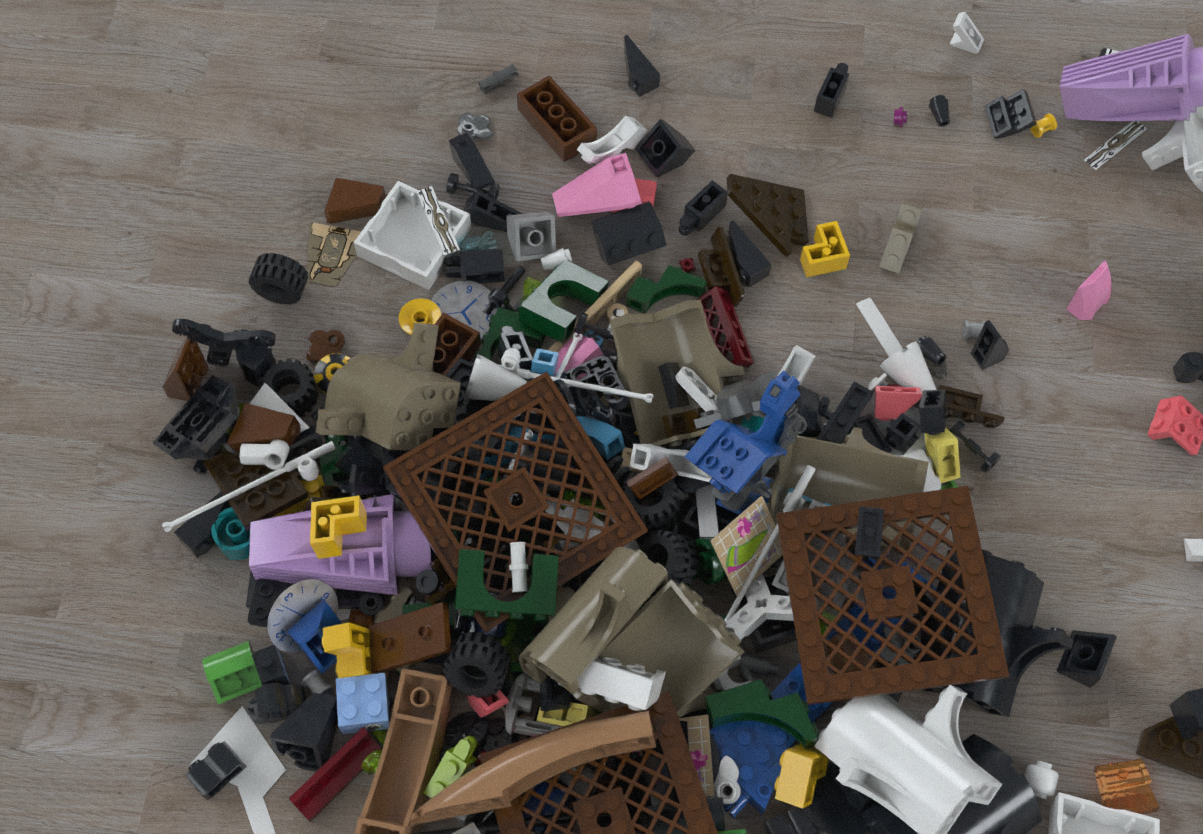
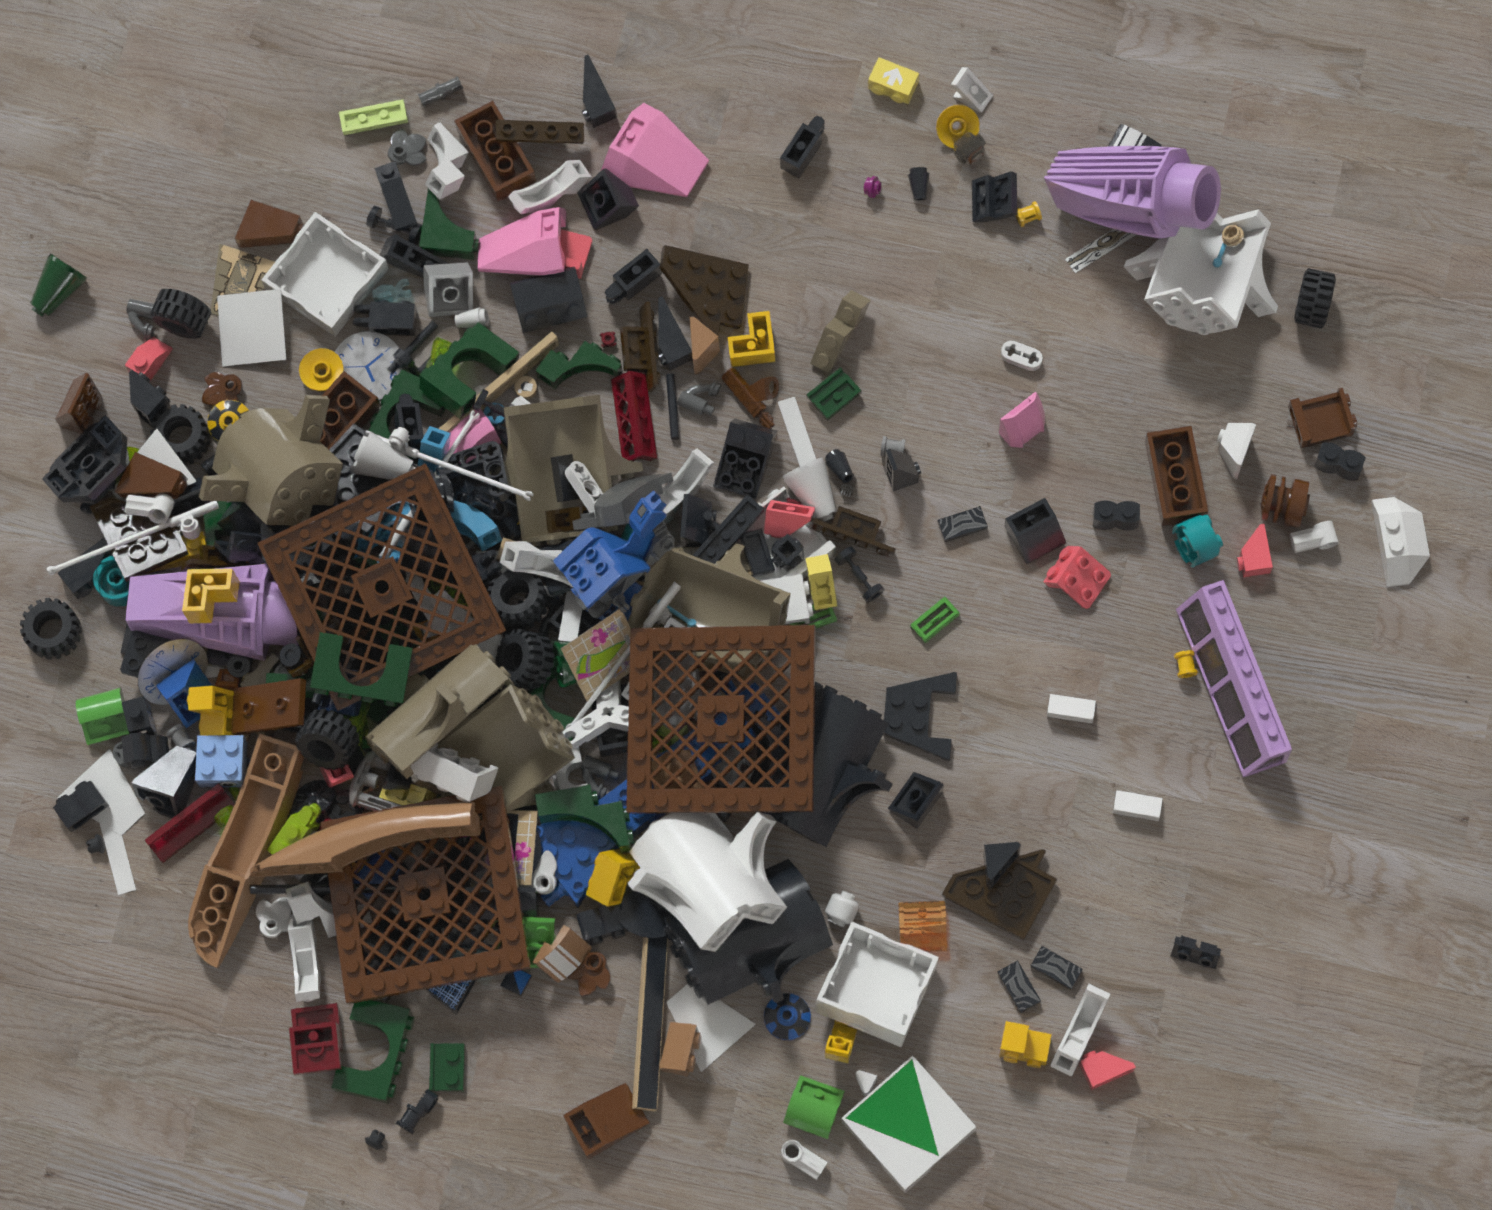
camera: 15 degrees right, 10 degrees up
(155, 268) = (55, 285): none -> dark green cone
(161, 574) = (63, 640): none -> black tyre
(222, 343) = (118, 386): black piece -> none
(235, 810) = (96, 844): none -> black piece
(236, 283) = (140, 308): none -> dark grey plant
(251, 320) = (148, 357): none -> coral slope
(348, 287) = (251, 327): none -> white sticker
(438, 220) = (351, 263): sticker -> none
(440, 104) = (373, 117): none -> yellowish green plate
(515, 138) = (451, 155): none -> white arch
(518, 567) = (375, 653): white pin -> none
(521, 192) = (442, 236): none -> dark green arch
(595, 98) = (540, 131): none -> dark brown bracket
(652, 478) = (518, 578): reddish brown tile -> none
(701, 110) = (654, 154): none -> bright pink wedge
(759, 317) = (672, 406): none -> black bar
(780, 253) = (704, 345): none -> medium nougat slope
(783, 312) = (696, 404): none -> dark grey plant
(833, 299) = (753, 395): none -> reddish brown piece
(838, 353) = (745, 458): none -> black slope
(869, 532) = (710, 659): black plate -> none
(897, 33) = (893, 81): none -> light yellow brick
(908, 289) = (834, 393): none -> dark green plate
(933, 411) = (816, 537): black brick -> none
(970, 61) = (967, 121): none -> yellow dish
(978, 78) = (969, 148): none -> clear smoke head
(1044, 493) = (920, 632): none -> bright green tile
(1056, 391) = (962, 524): none -> black tile
(1056, 569) = (909, 709): none -> black wing
(1069, 241) = (1019, 360): none -> white beam
(1129, 387) = (1035, 531): none -> black slope

